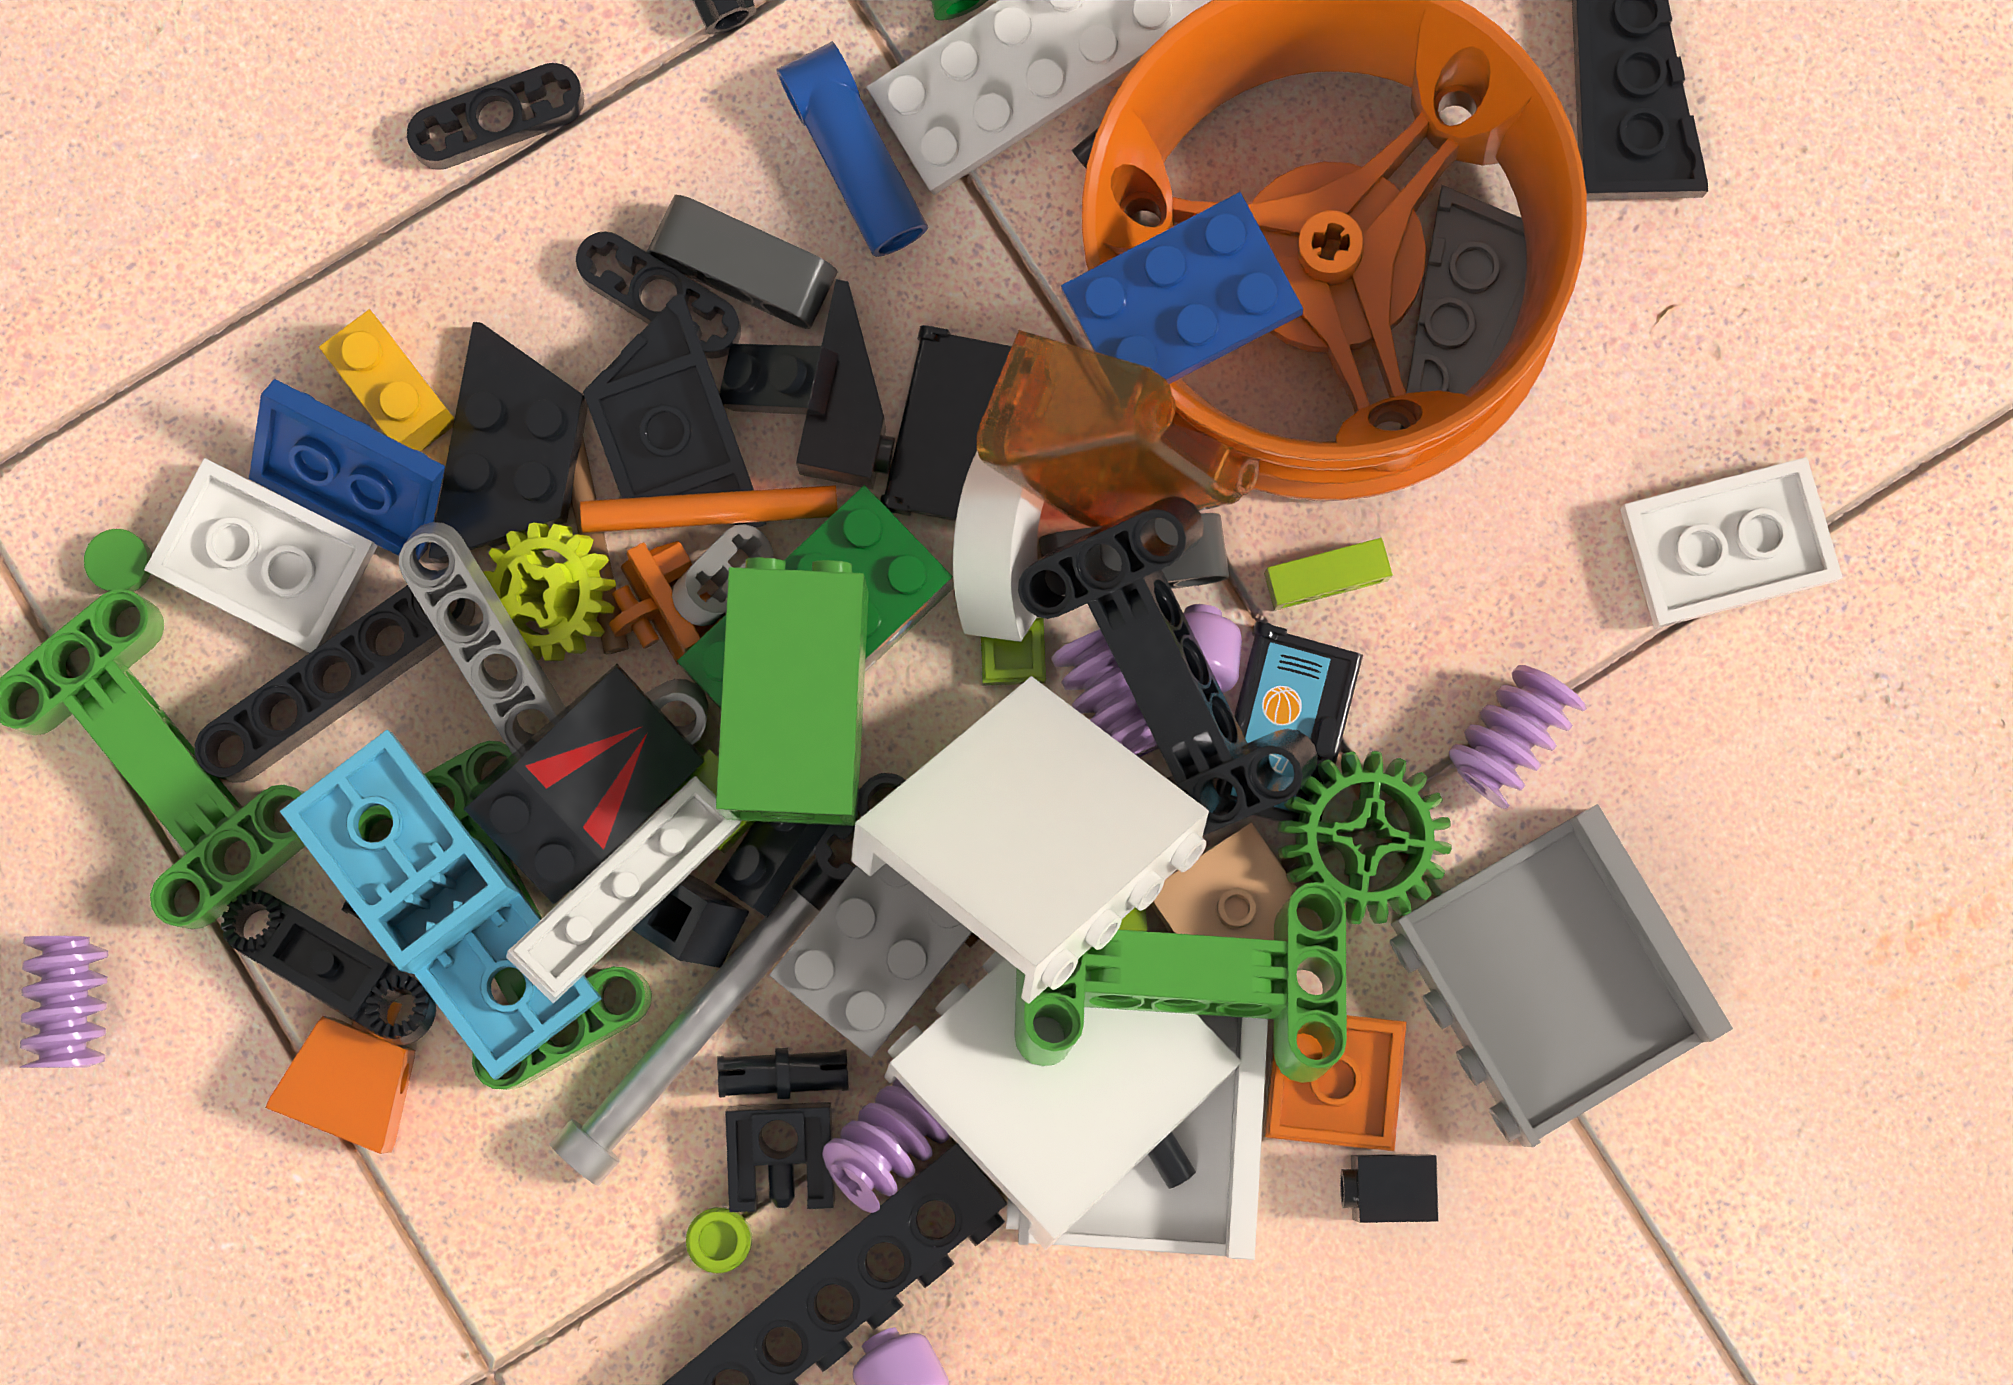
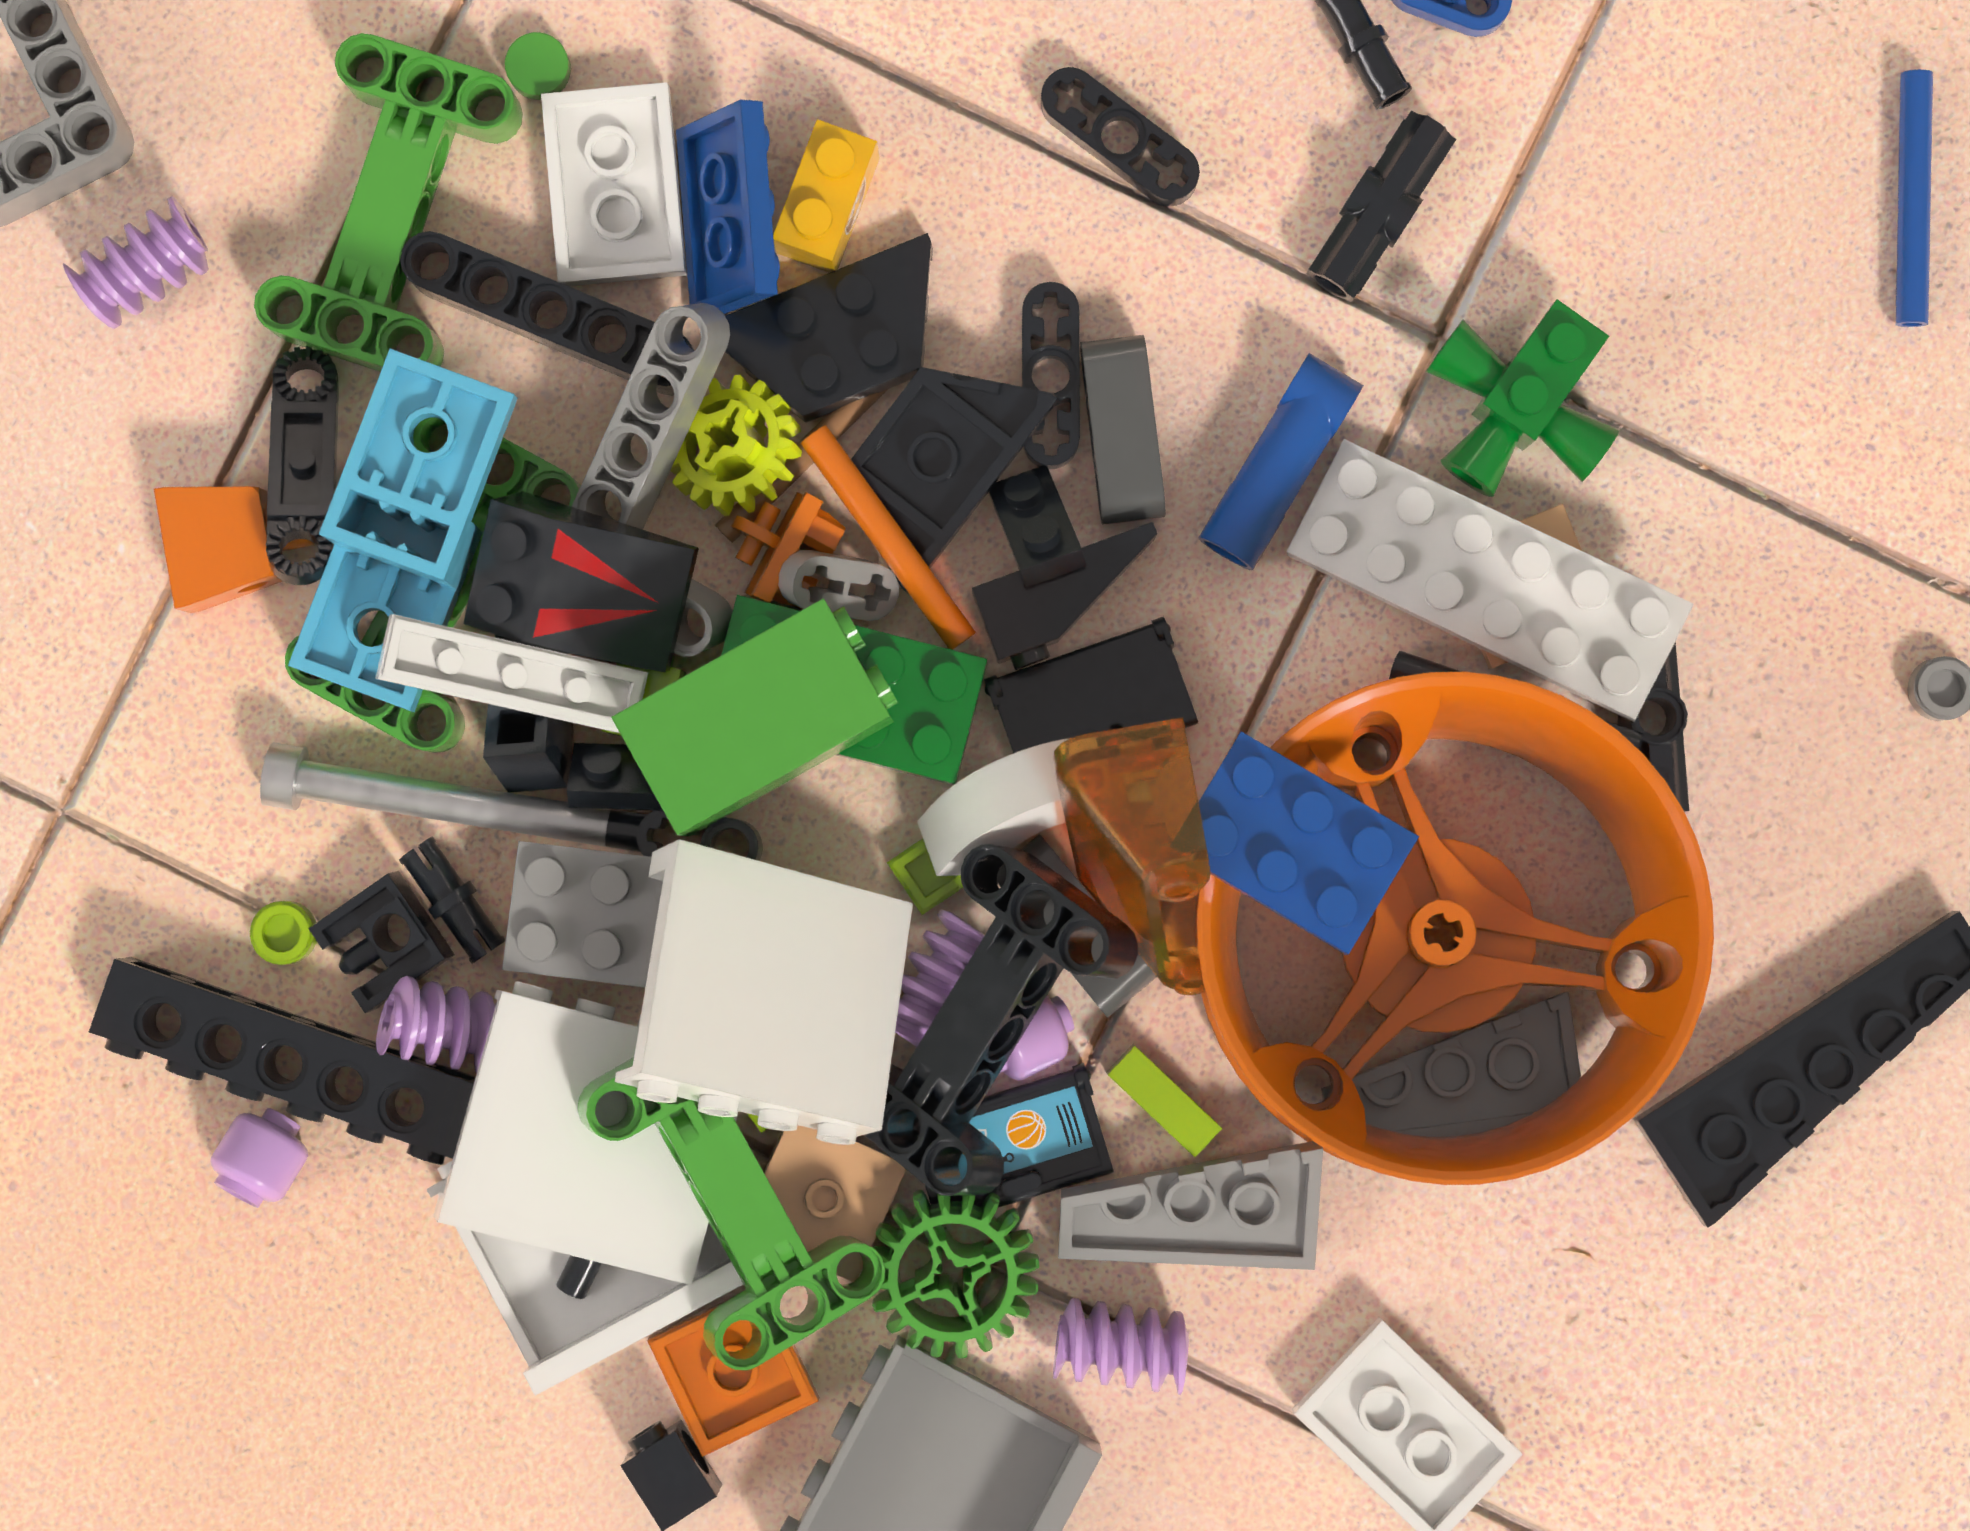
camera: 65 degrees right, 5 degrees up
(1448, 590) = (1213, 1212): none -> light grey wing

